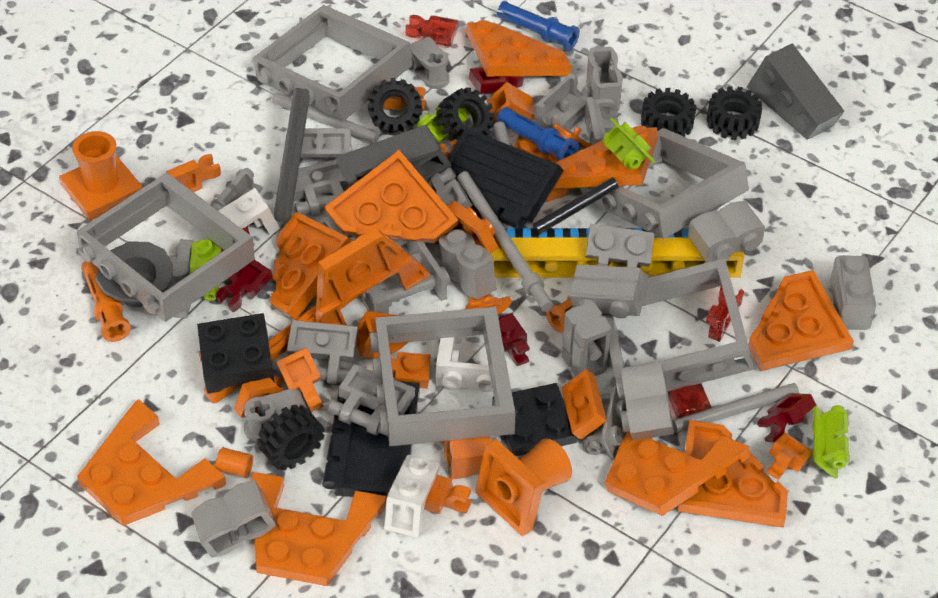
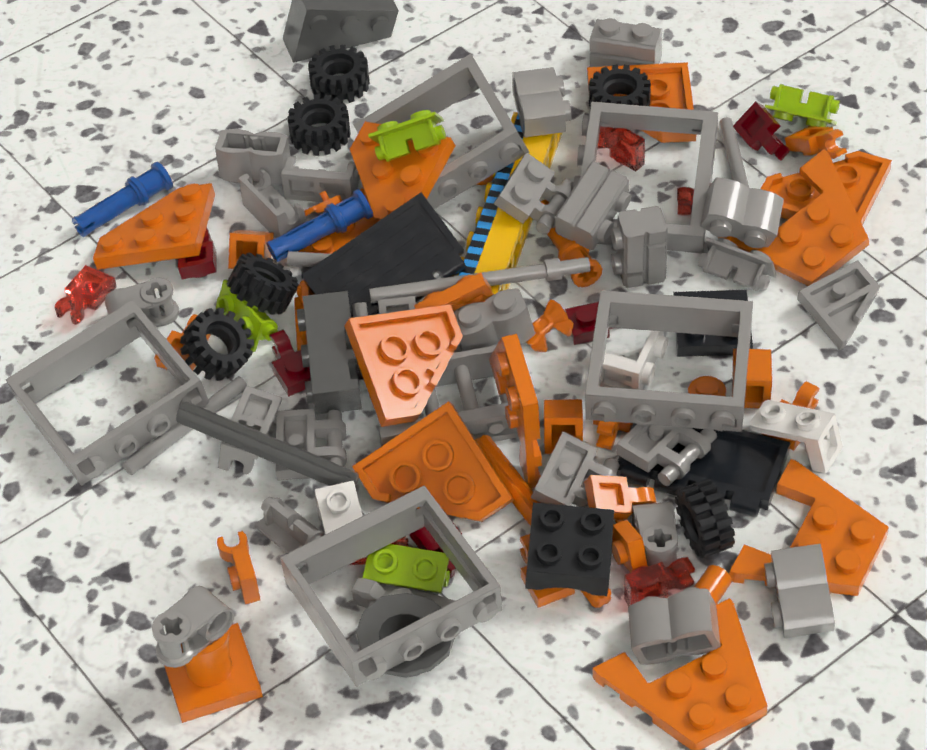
camera: 70 degrees left, 0 degrees up
(85, 132) = (192, 621): none -> light grey piece
(106, 309) = (438, 683): orange pin -> none
(183, 438) = (674, 626): none -> light grey brick
(225, 419) = (657, 580): none -> clear red plate
(516, 485) = (813, 340): orange plant -> none
(575, 205) = (459, 208): black bar -> none
(583, 404) = (715, 272): orange plate -> none
(586, 508) = (840, 301): none -> light grey wing
(772, 306) = (620, 81): none -> black tyre

